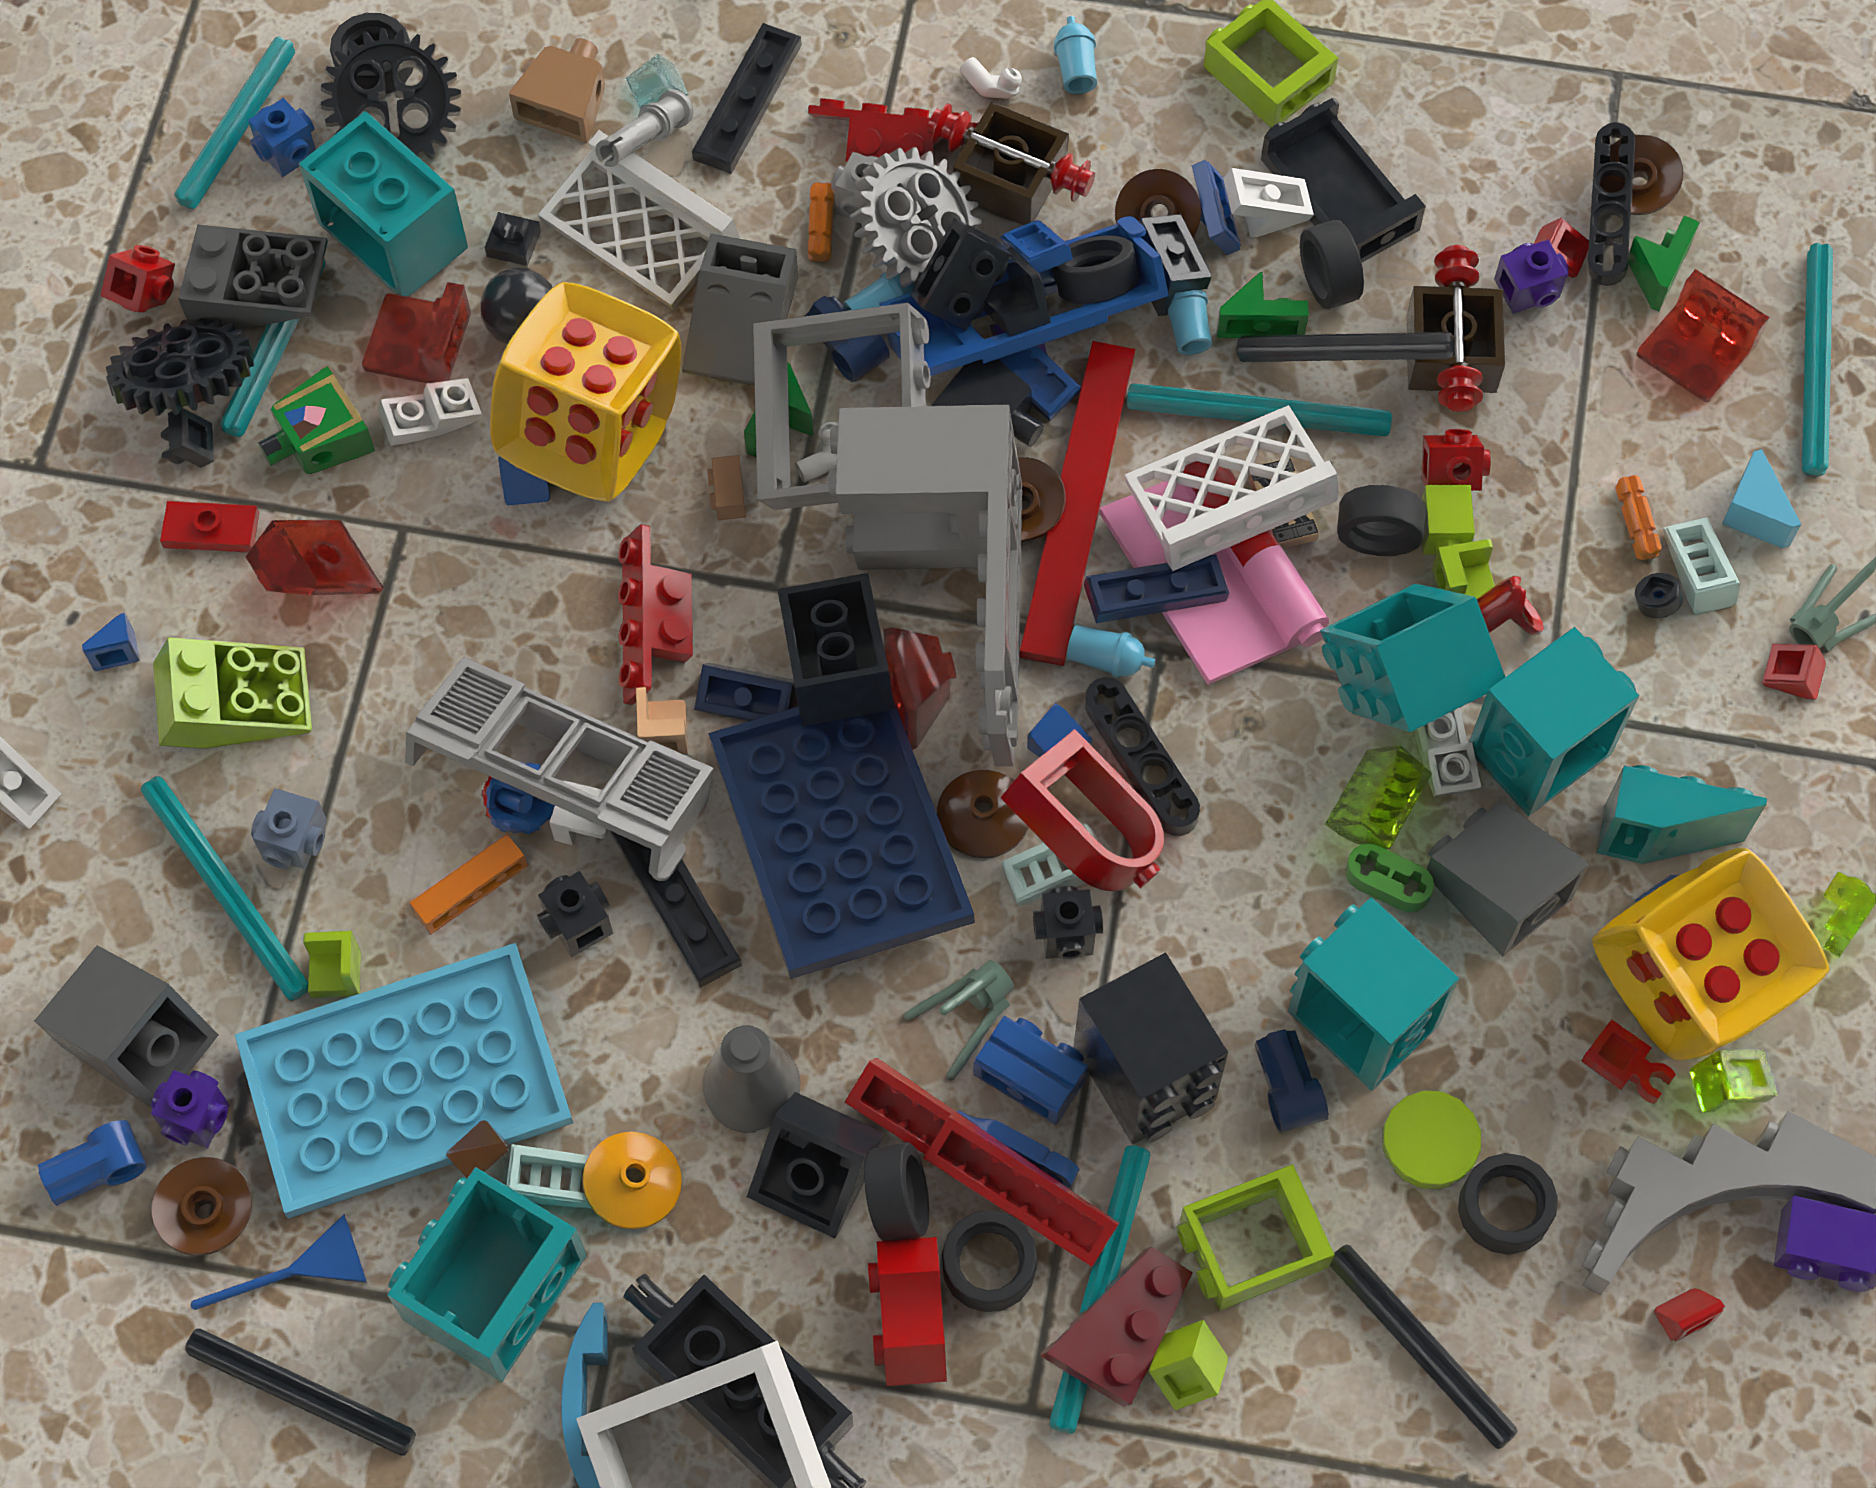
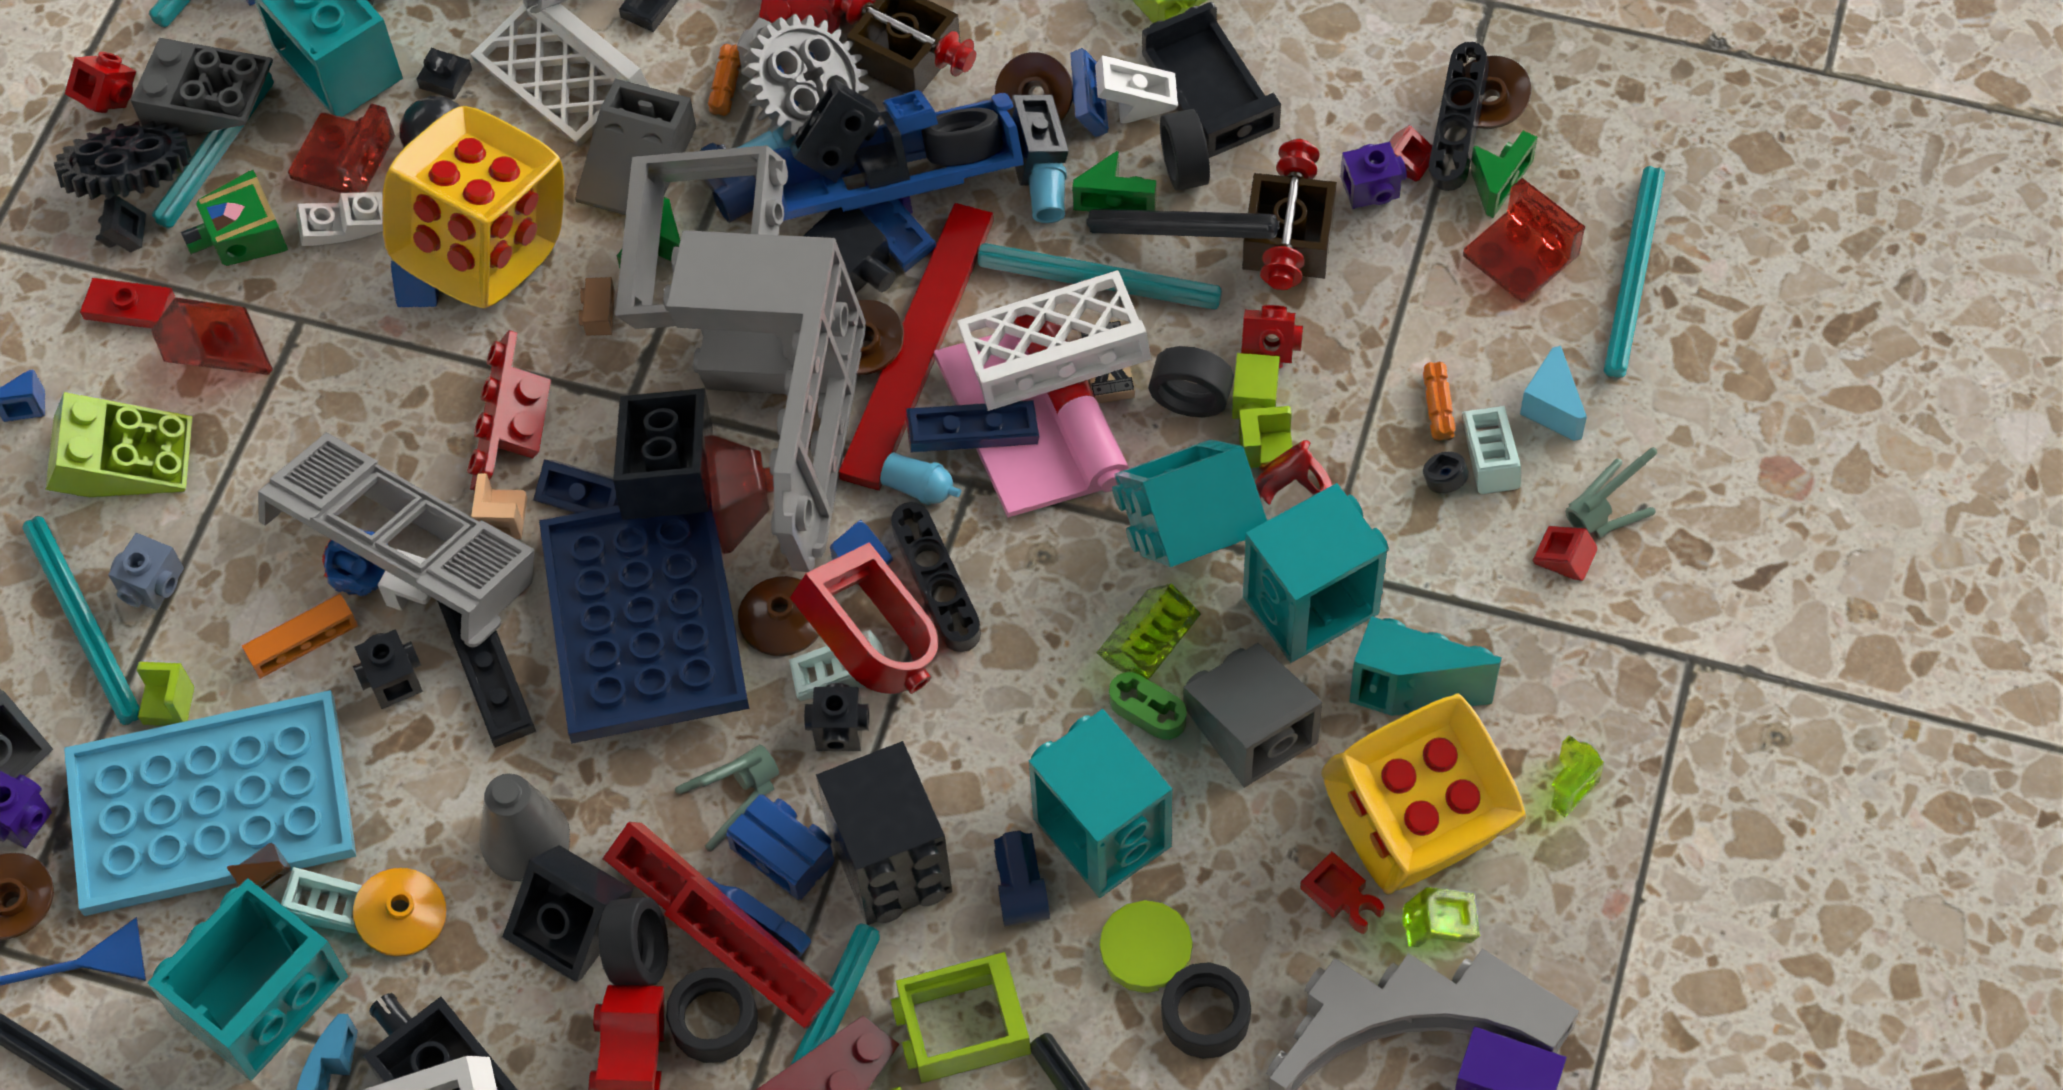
camera: 10 degrees right, 5 degrees down
(1448, 755) = (1220, 594): white slope -> none

